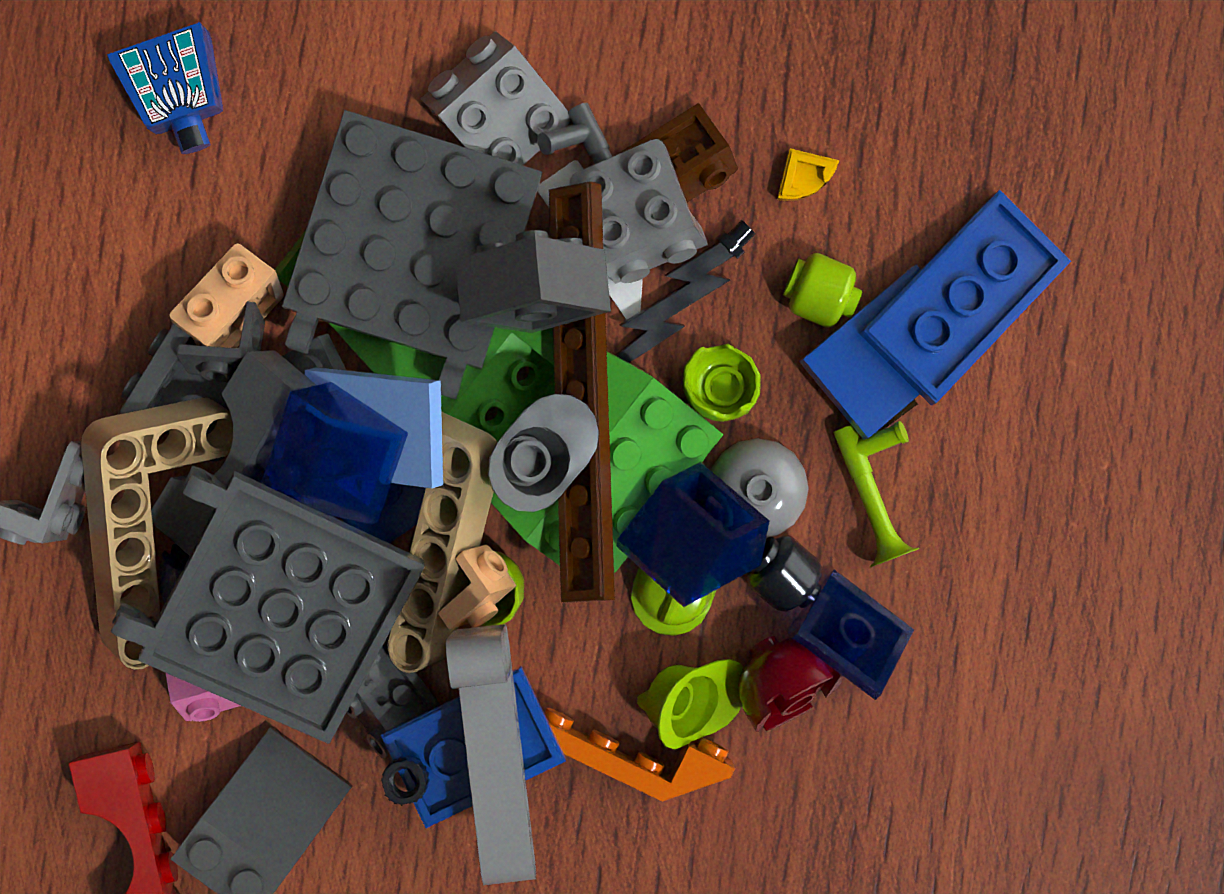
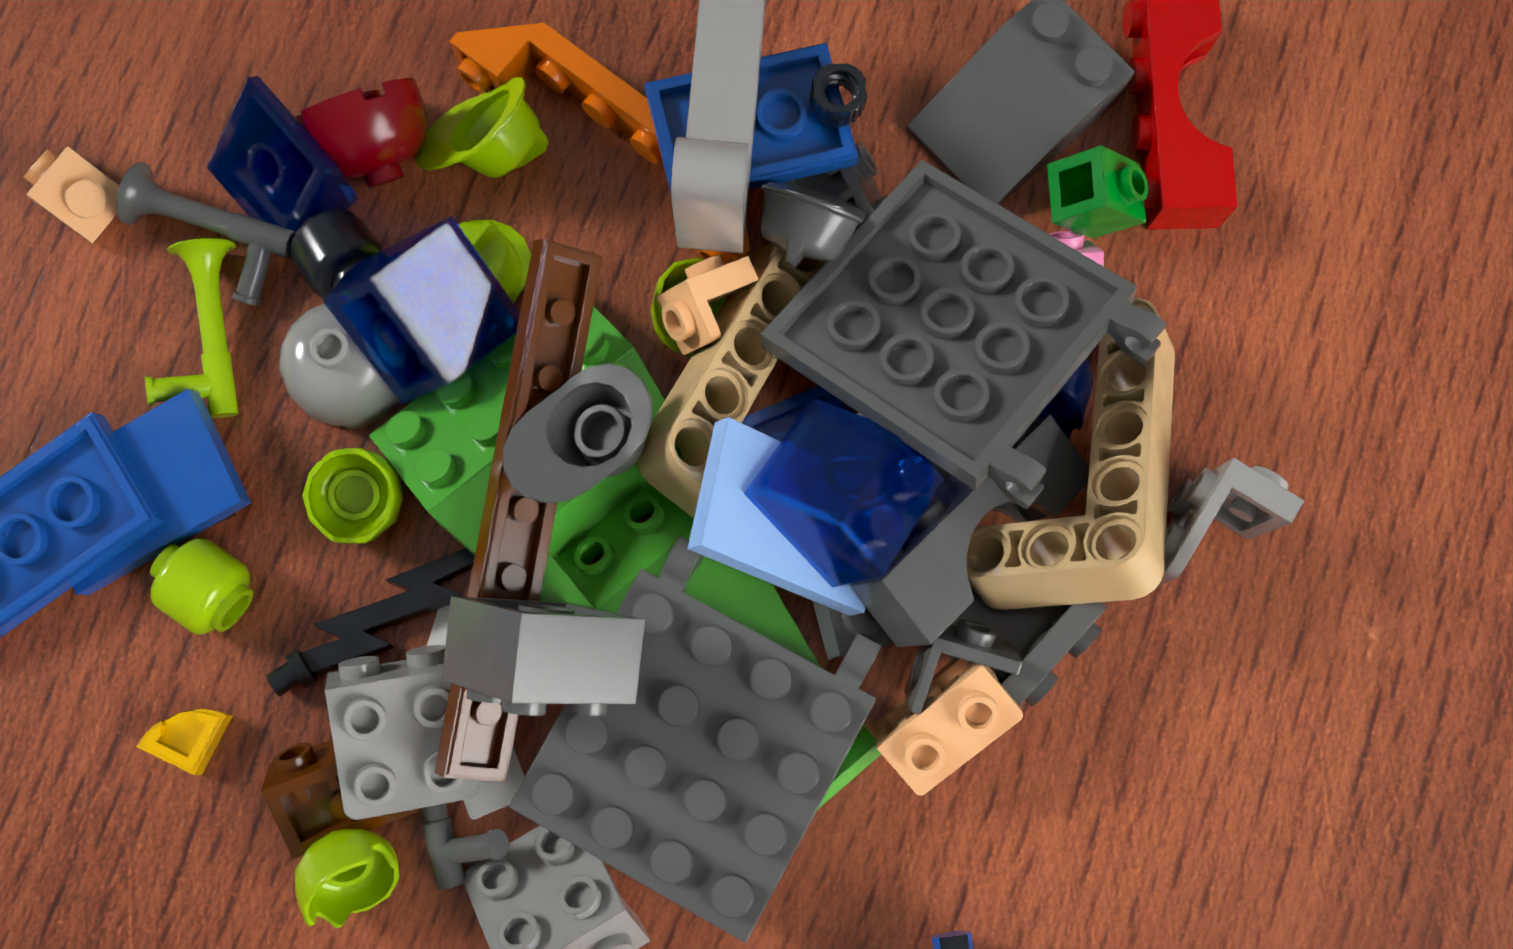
camera: 170 degrees left, 10 degrees down
(184, 753) = (1097, 192): none -> green brick
(407, 671) = (807, 222): none -> dark grey piece
(654, 99) = (345, 875): none -> lime hair
(848, 575) = (142, 196): none -> dark grey piece
(1010, 583) = (73, 192): none -> light nougat bracket

